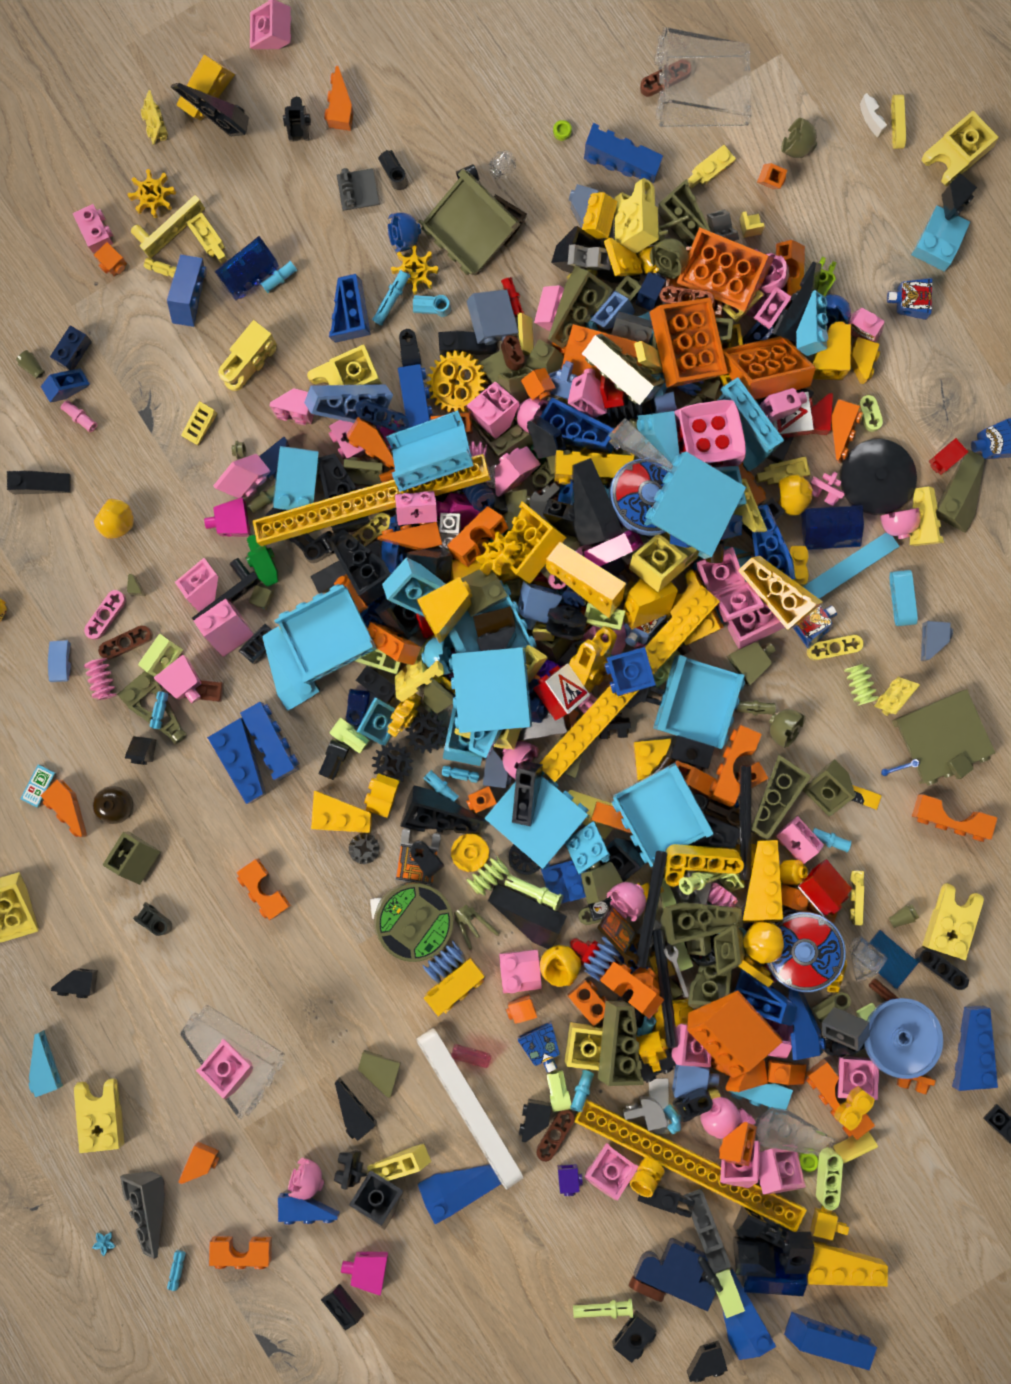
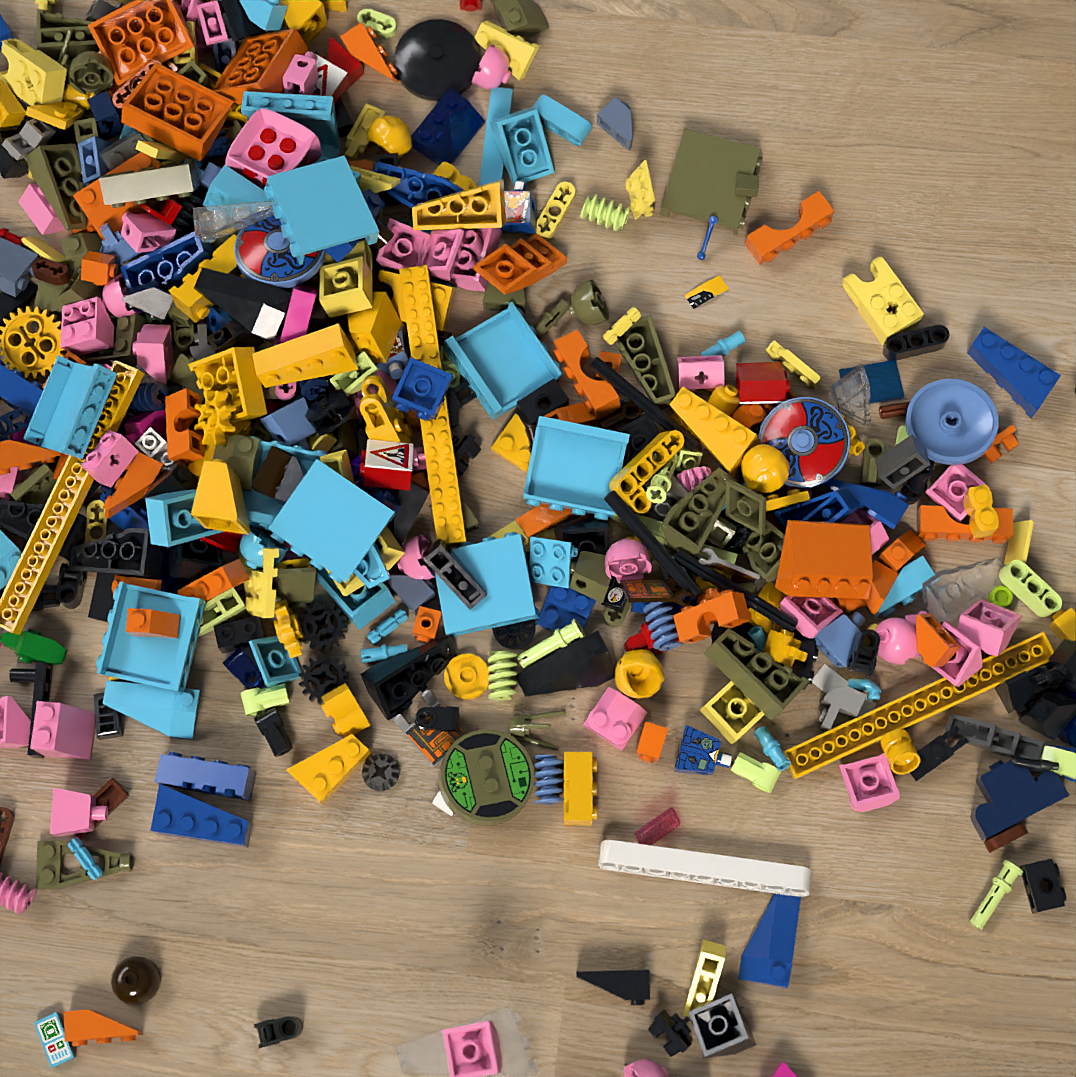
camera: 50 degrees left, 10 degrees down
(131, 858) = (200, 1001): olive slope -> none
(141, 750) = (108, 906): black slope -> none
(159, 655) = (35, 817): yellowish green panel -> none
(251, 877) = (358, 902): orange arch -> none
(261, 597) = (66, 678): olive slope -> none
(333, 629) = (152, 623): none -> orange slope
(379, 1071) = (602, 927): olive slope -> none
(536, 1118) = (764, 813): black slope -> none
(552, 1150) = (798, 799): copper beam -> none
(569, 1179) = (846, 828): dark purple brick -> none
(586, 1005) = (695, 683): orange brick -> none
(775, 659) = (520, 264): none -> orange slope
(789, 764) = (621, 325): none -> light yellow axle
(831, 788) = (676, 310): olive slope -> none
(834, 493) = (419, 105): bright pink hips -> none
(863, 588) = (522, 145): none -> medium azure slope
(904, 916) = (843, 337): olive cone -> none

